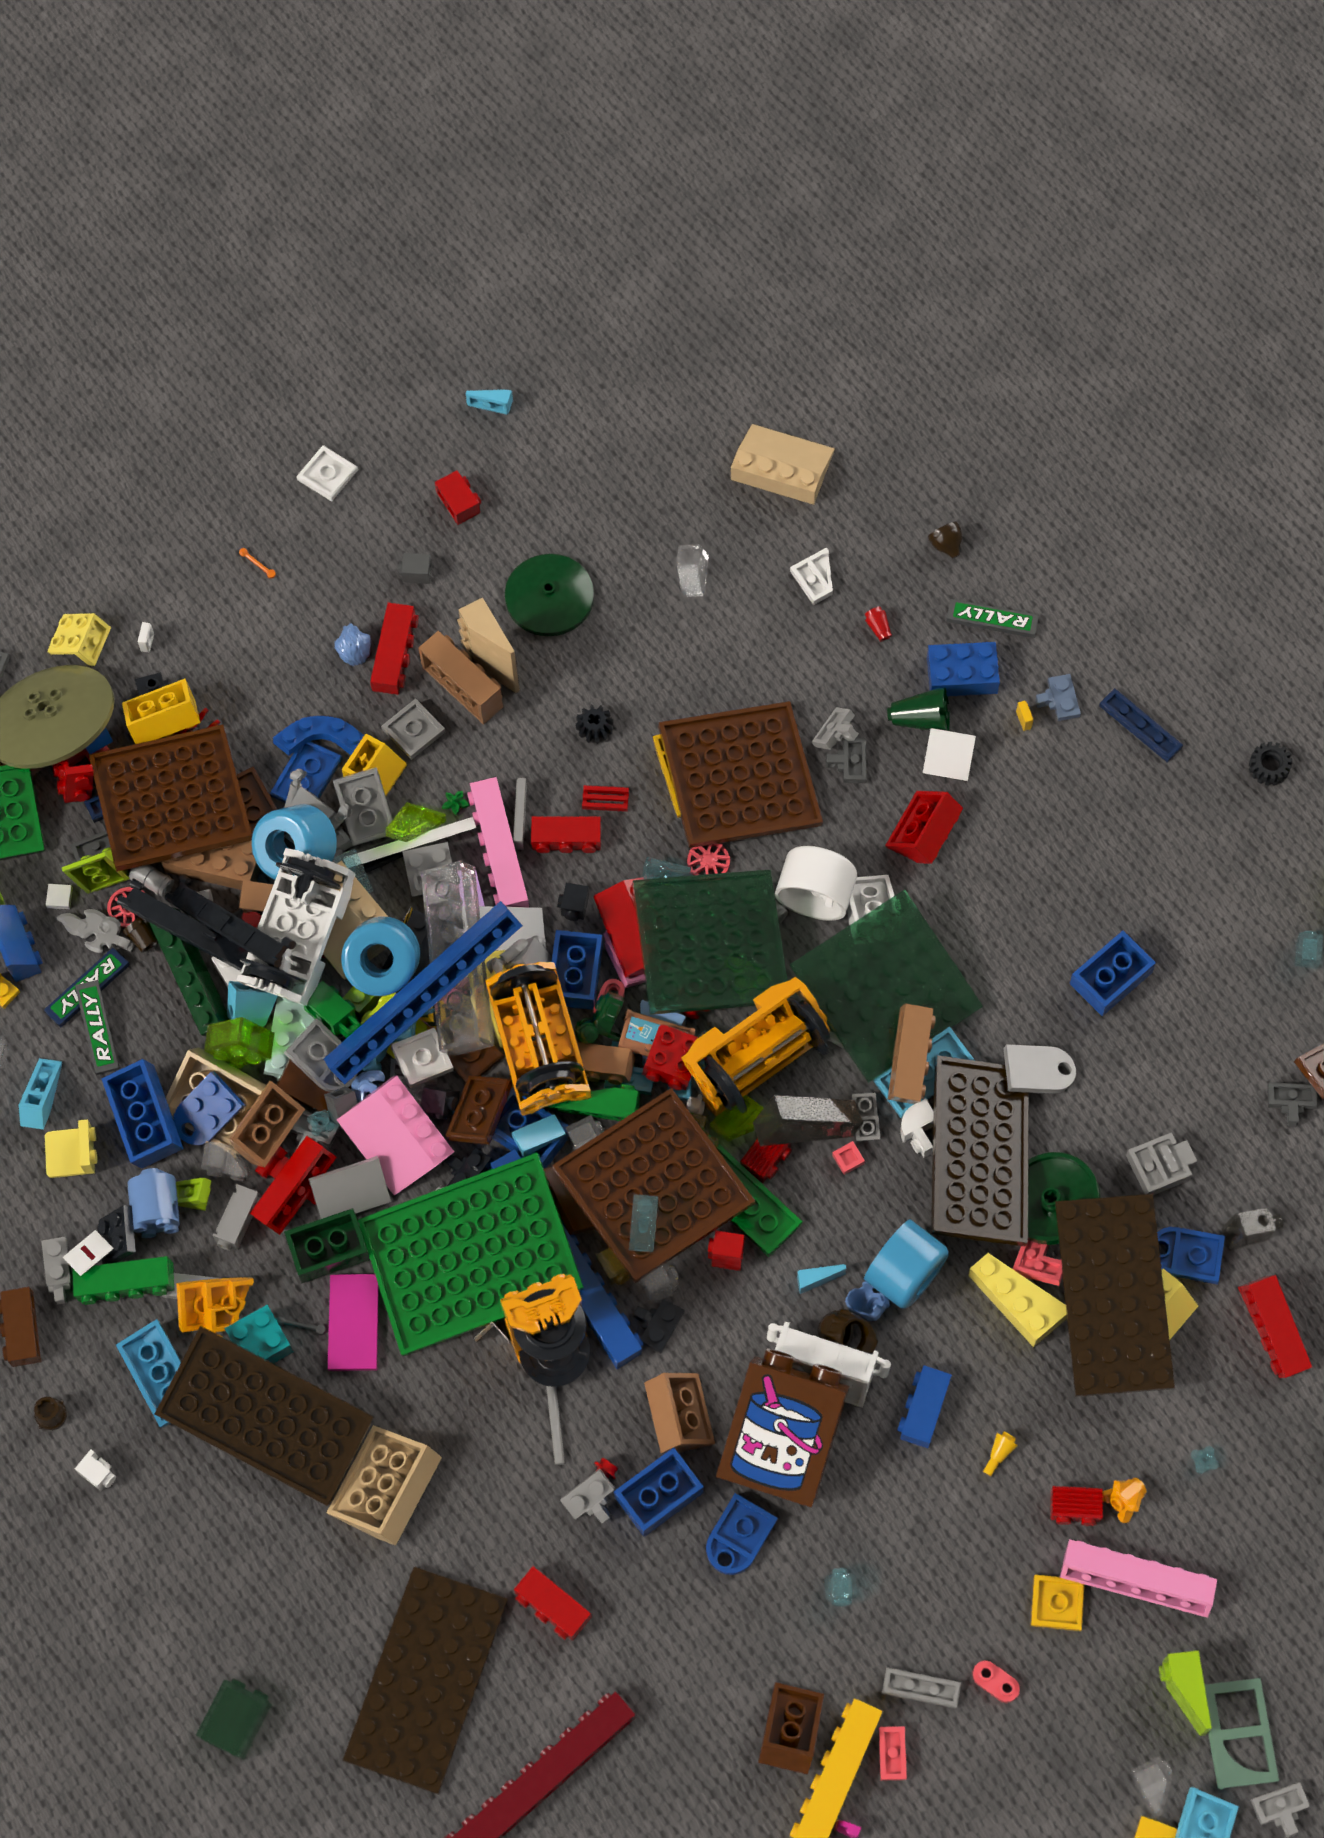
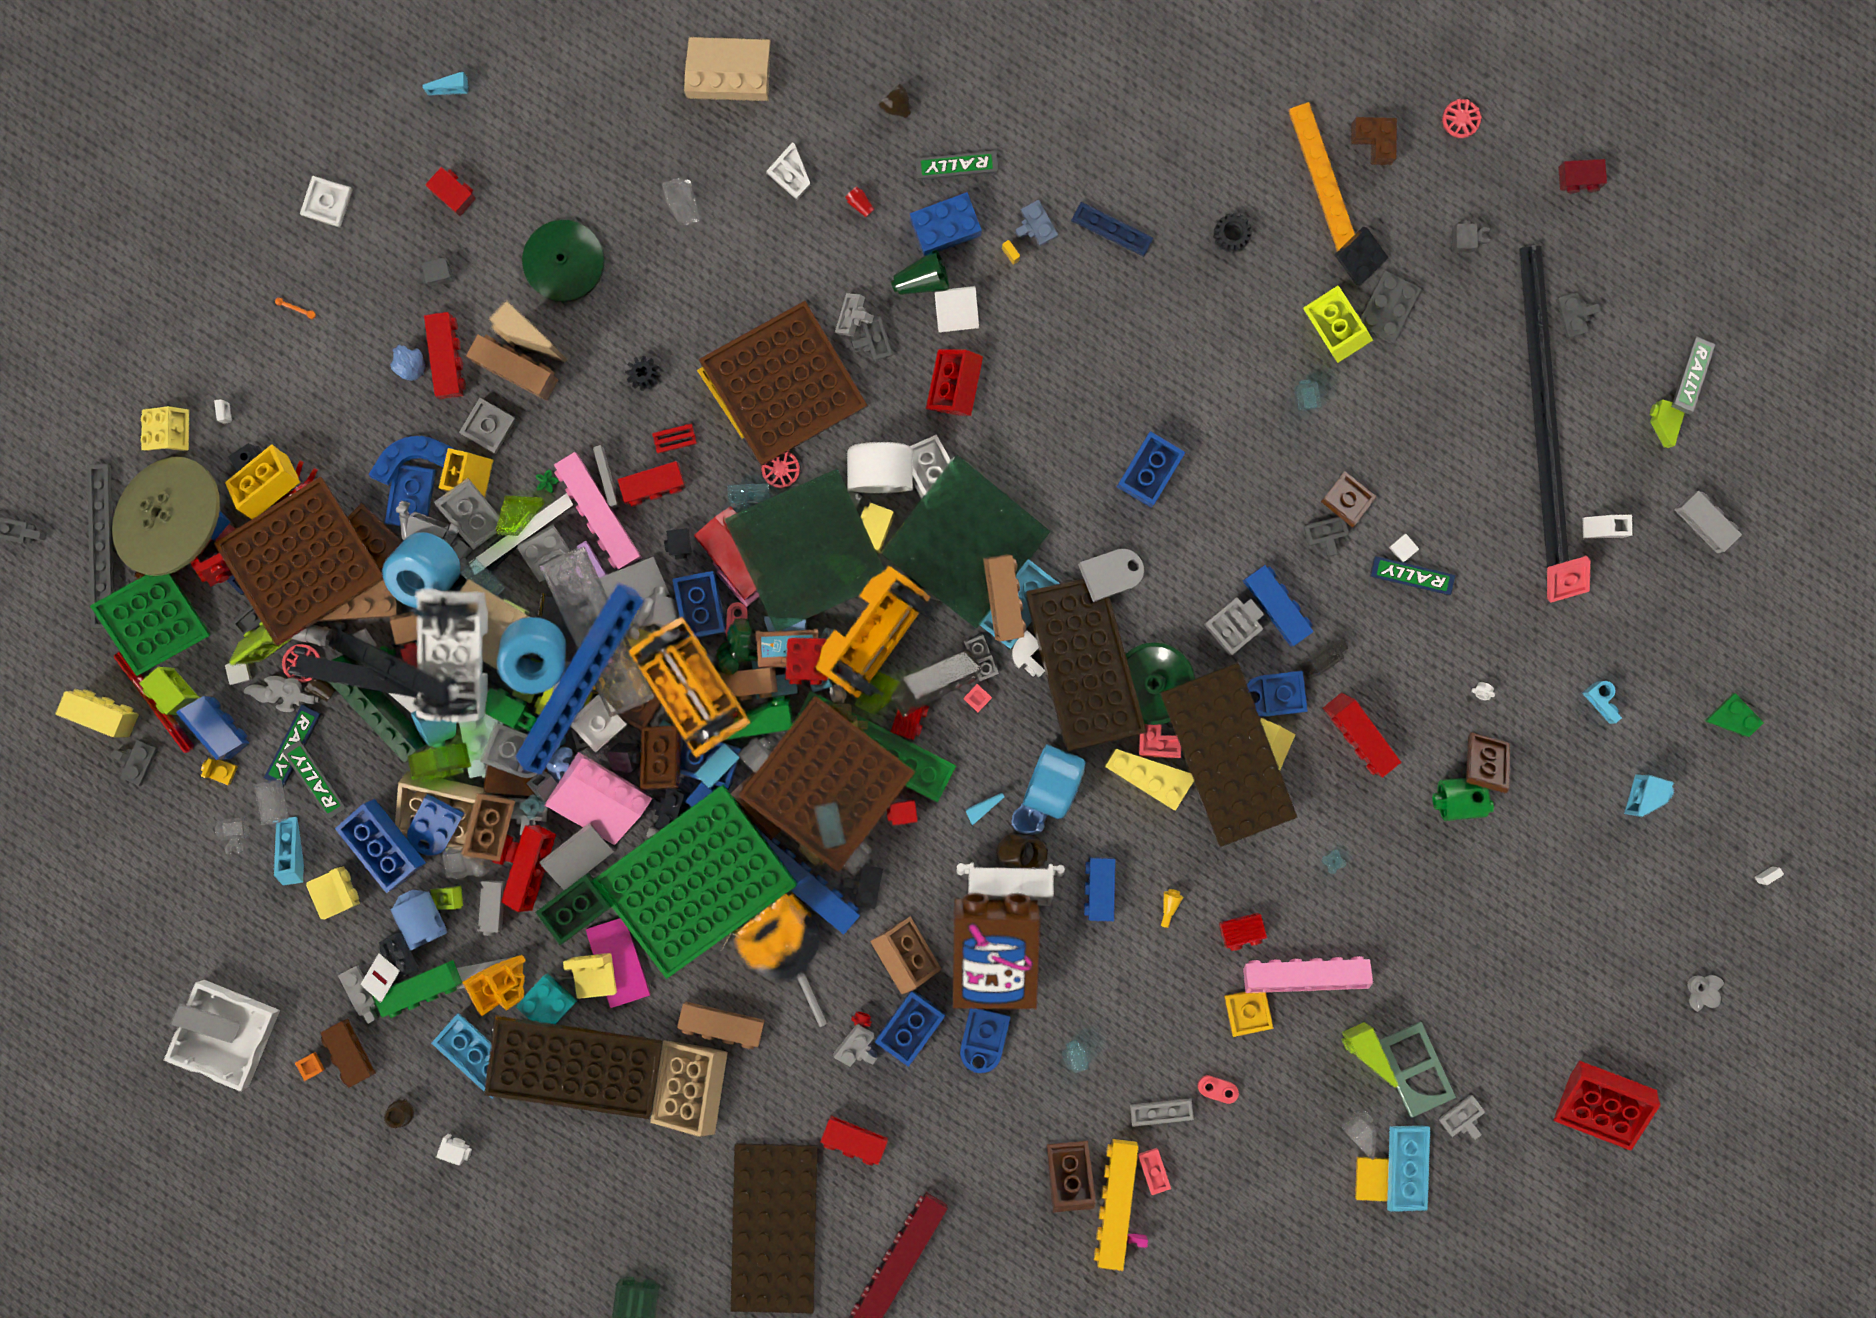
camera: 20 degrees left, 20 degrees up
(43, 1033) = (271, 802): none -> clear brick
(321, 1322) = (592, 975): none -> light yellow bracket
(444, 1424) = (720, 1024): none -> medium nougat brick
(797, 938) = (877, 524): none -> light yellow slope
(1125, 1497) = (1280, 913): light orange rock -> none
(1216, 1158) = (1278, 605): none -> blue brick

